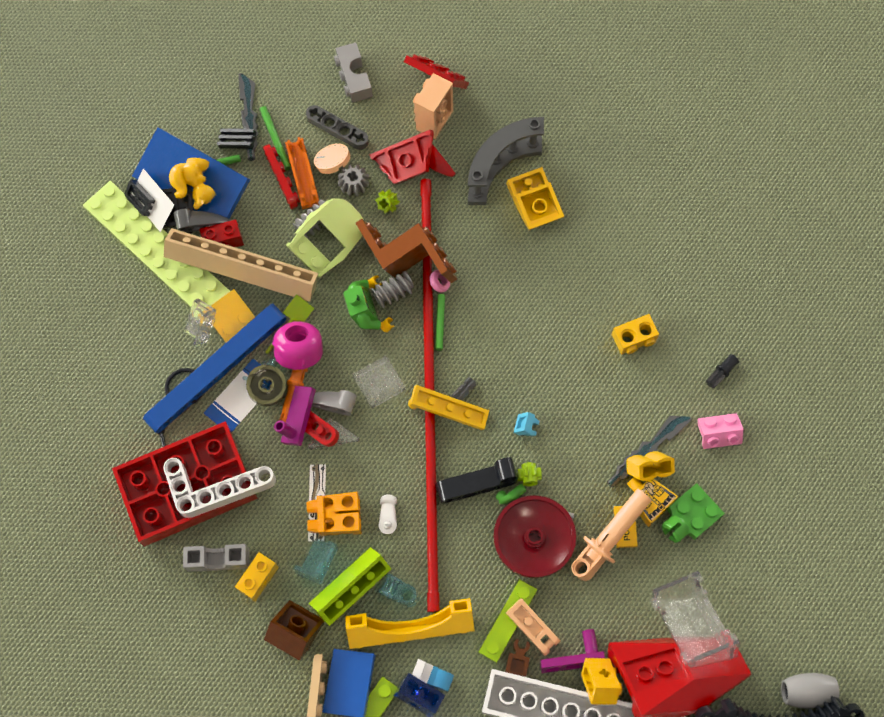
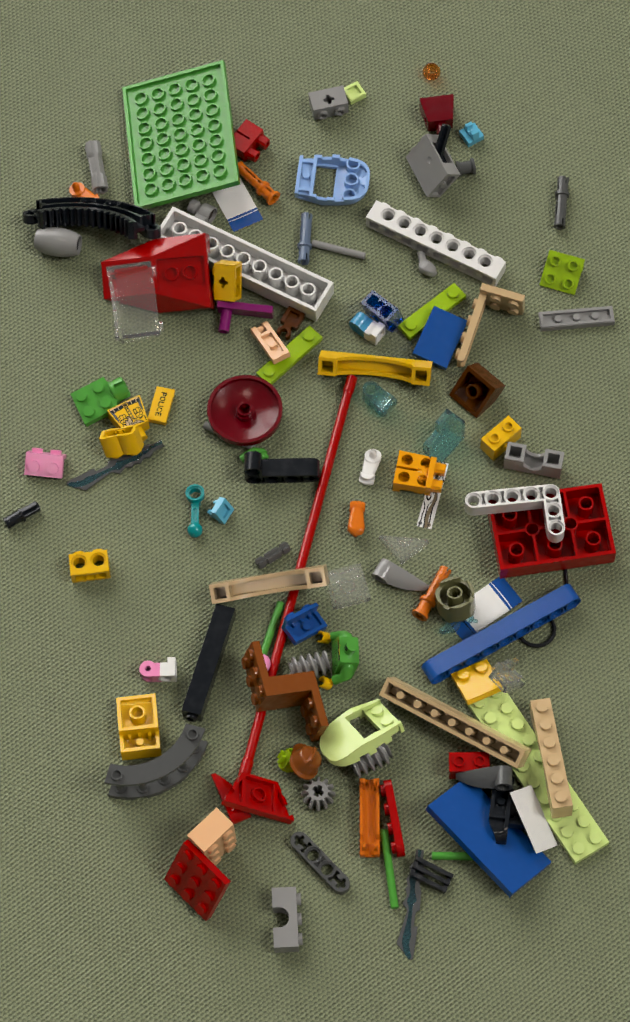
camera: 165 degrees left, 5 degrees down
(140, 194) = (546, 828): black tile -> none
(145, 258) = (552, 760): none -> tan arch
(192, 174) = (485, 819): yellow animal -> none
(297, 311) = (411, 670): lime piece -> none
(297, 345) = (427, 618): dark pink piece -> none
(297, 418) = (432, 564): magenta piece -> none
(323, 431) = (413, 544): red plate -> none
(332, 158) = (334, 822): light nougat tile -> none
(350, 586) = (419, 408): lime brick -> none
(372, 201) = (305, 761): none -> dark orange piece
(385, 446) = (356, 519): none -> orange piece
(408, 327) = (303, 624): none -> blue bracket
(448, 407) = (289, 538): yellow piece -> none
(489, 272) = (208, 663): none -> black brick
(489, 340) = (269, 583): none -> tan arch
(529, 474) = (232, 464): lime gear -> none
(532, 251) = (159, 671): none -> leg
(545, 399) = (195, 528): none -> teal piece
(599, 550) = (191, 385): light nougat piece -> none

